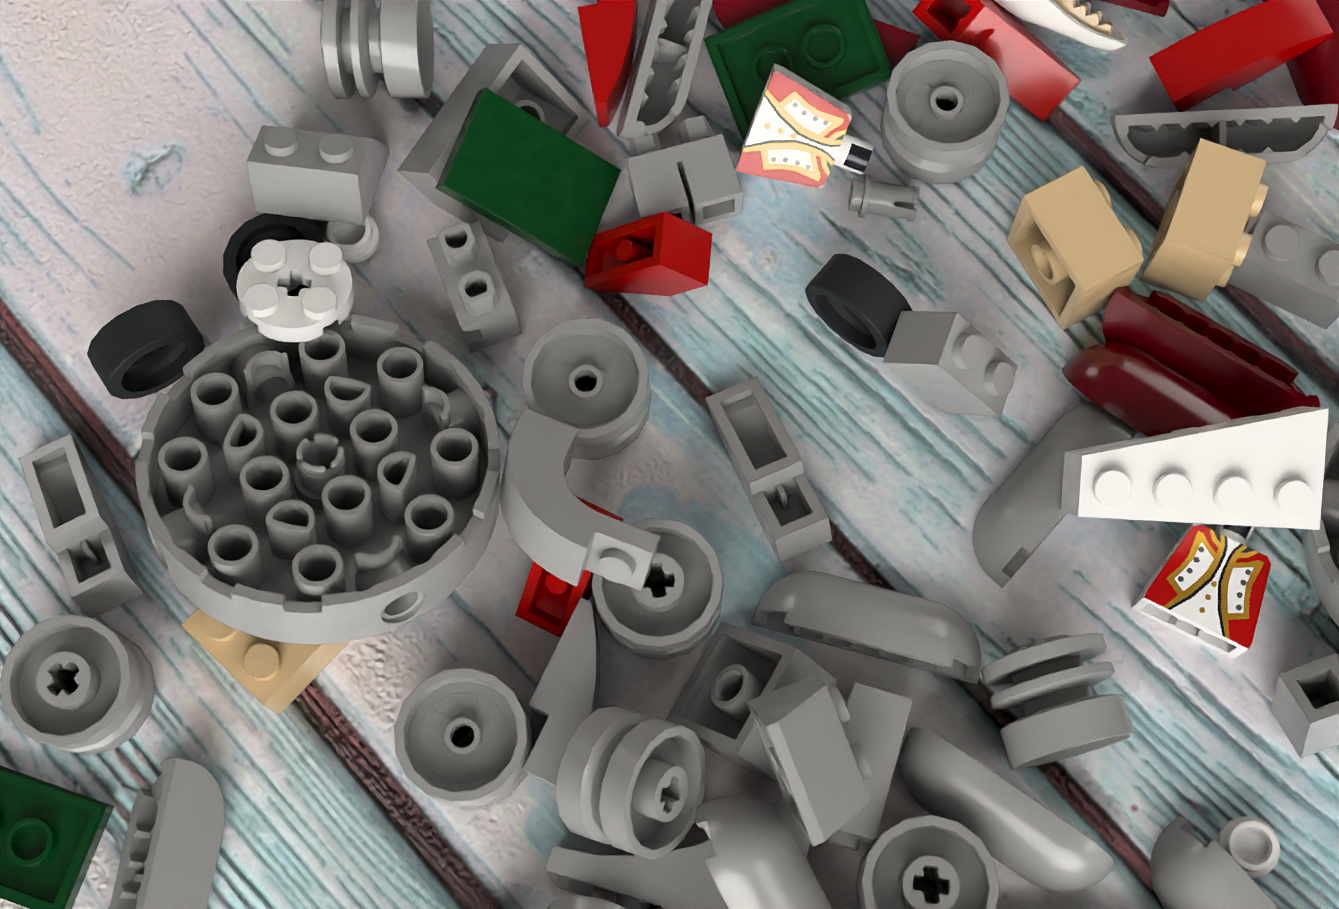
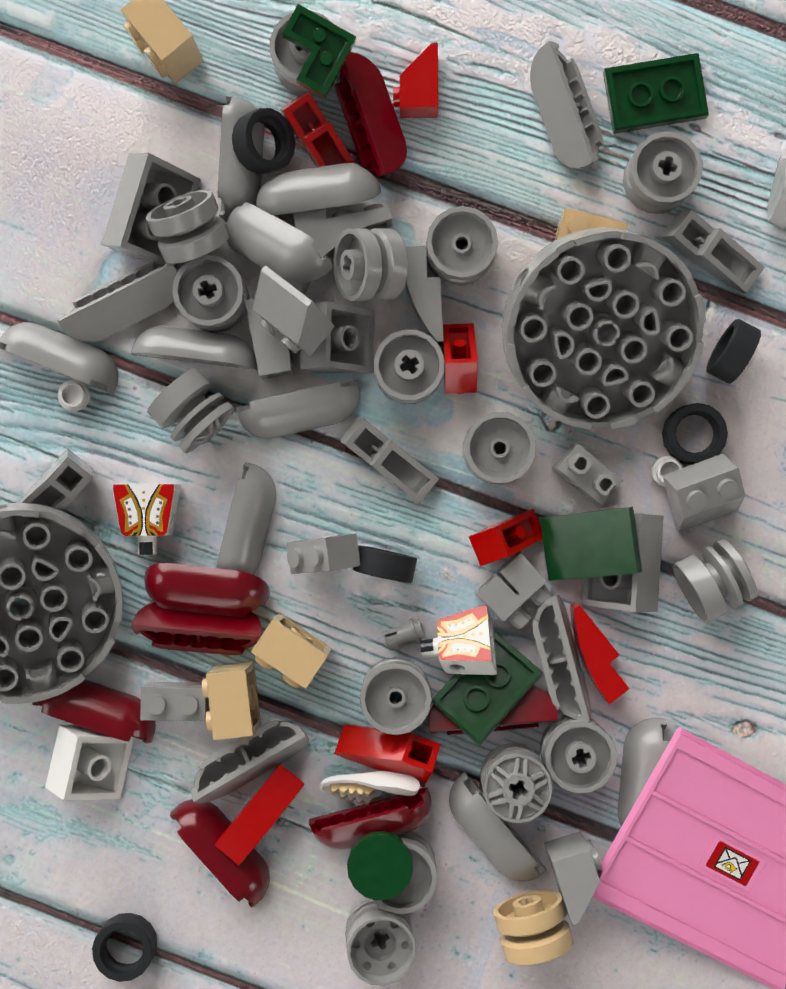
camera: 150 degrees right, 15 degrees up
(290, 262) = (657, 411): white plate -> none
(553, 522) = (477, 361): light grey arch -> none
(1222, 473) = (163, 558): white wedge -> none

